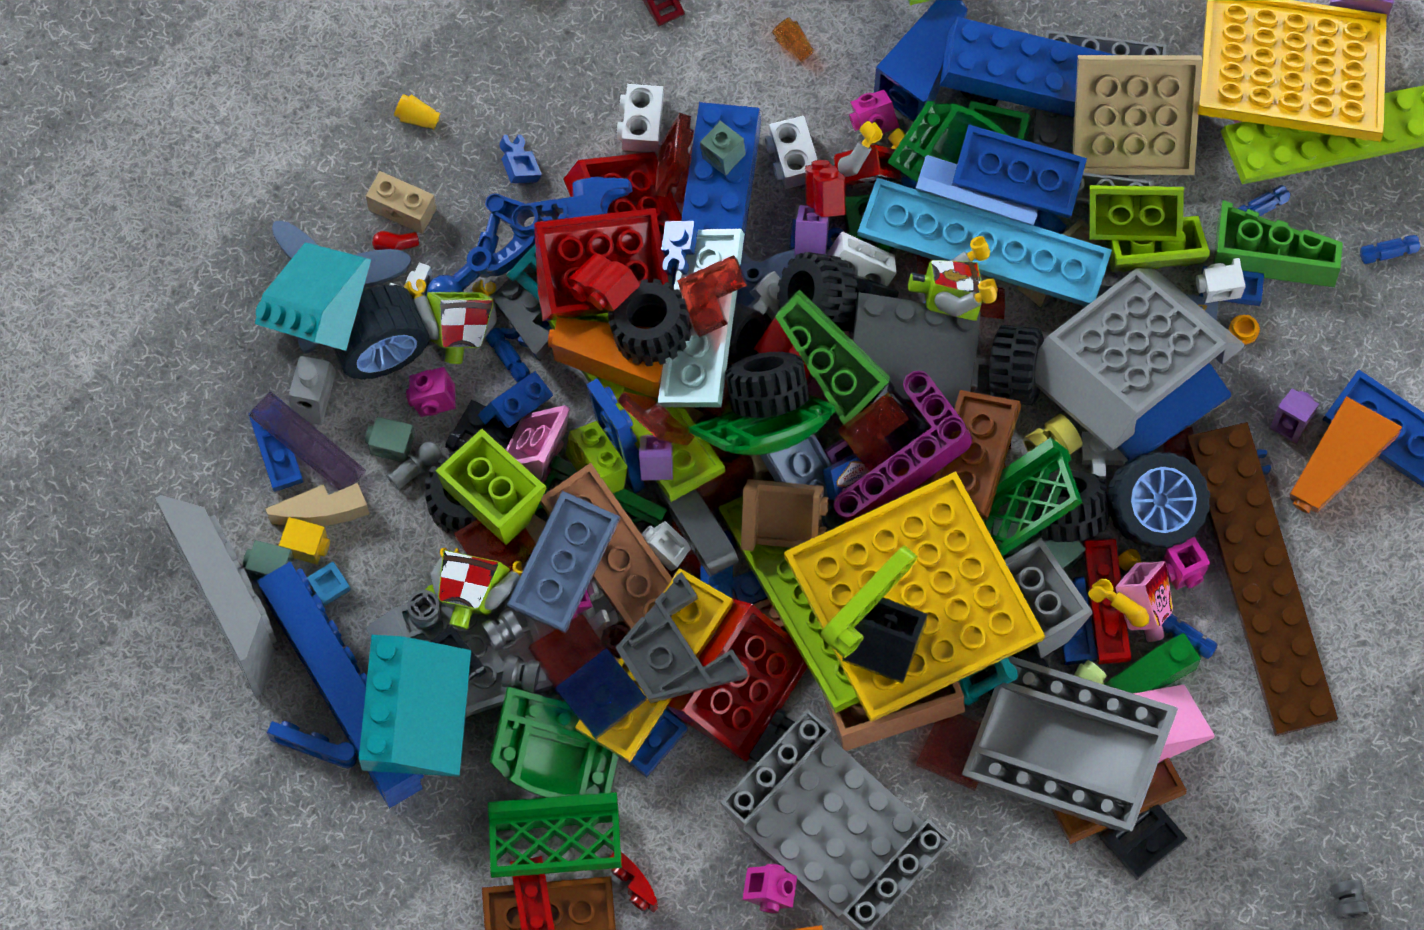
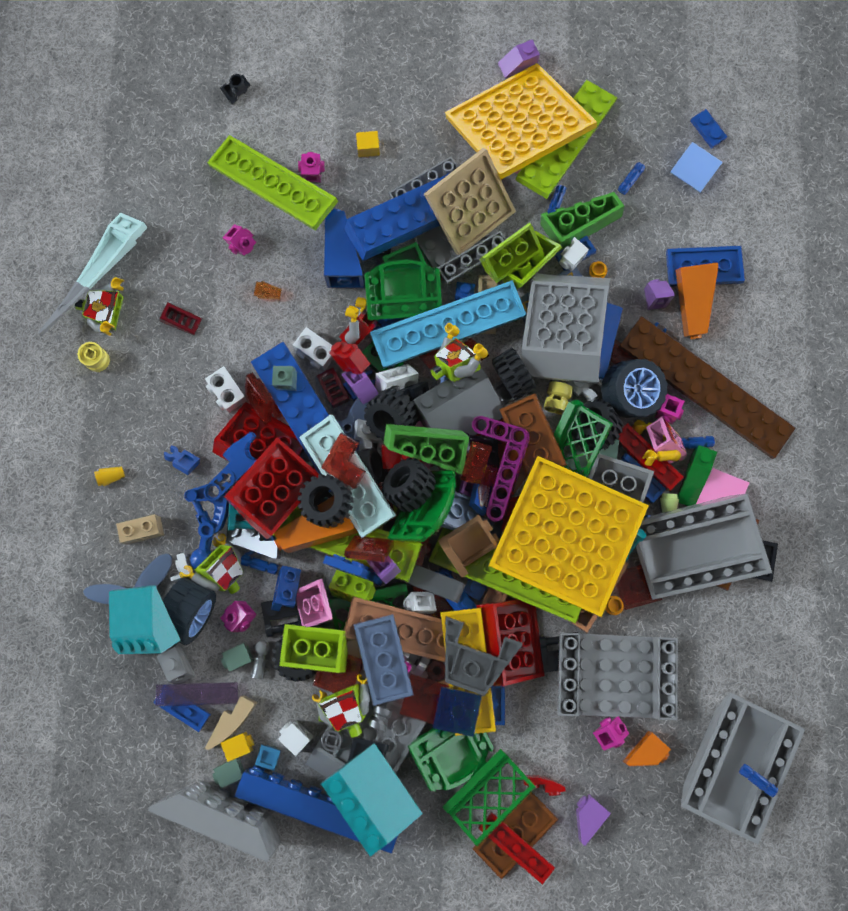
camera: 40 degrees left, 10 degrees up
(313, 745) = (330, 847): blue plate -> none
(381, 580) = (295, 737): none -> white brick
(388, 240) = (152, 553): red arm -> none
(514, 670) = (404, 735): flat silver wheel -> none
(603, 283) = (286, 501): red brick -> none
(677, 242) = (303, 445): plate -> none
(771, 237) = (340, 400): none -> dark red slope
(840, 630) = (562, 593): lime beam -> none
(874, 108) = (338, 299): dark pink brick -> none
(889, 639) = (578, 572): black slope -> none
(907, 746) = (614, 605): none -> light orange plate
(937, 180) = (424, 300): light blue panel -> none
(1019, 171) = (437, 275): blue plate -> none

